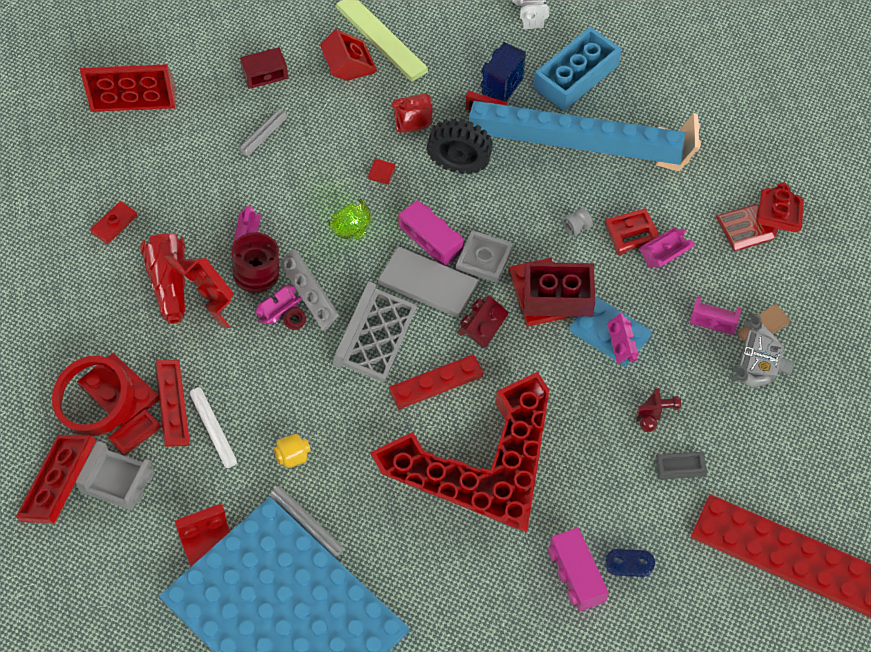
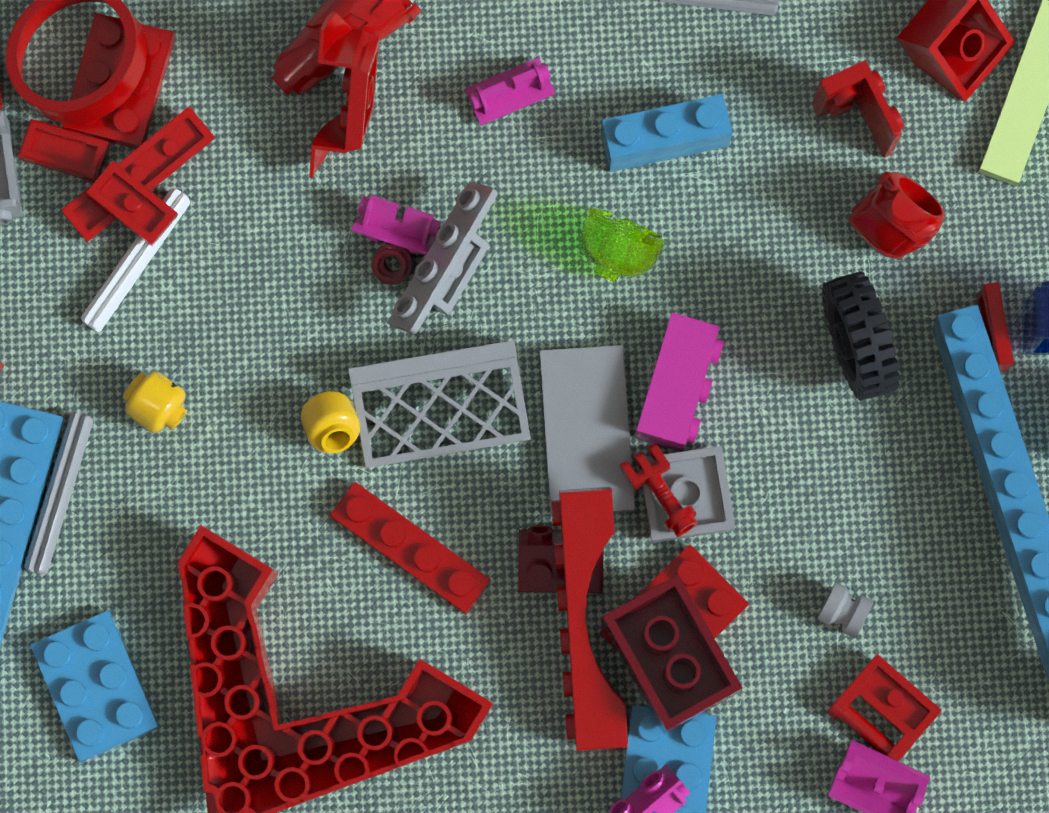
camera: 60 degrees right, 20 degrees up
(187, 406) = (132, 203): none -> red plate
(255, 262) = (456, 124): dark red wheel -> none
(312, 179) = (666, 132): none -> dark azure brick
(354, 379) = (330, 422): none -> yellow head
(356, 96) = (866, 88): none -> red bracket
(381, 171) = (758, 232): red tile -> none
(415, 555) = (94, 686): none -> dark azure plate
(463, 260) = (680, 519): none -> red hinge
(560, 337) = (598, 708): none -> red arch

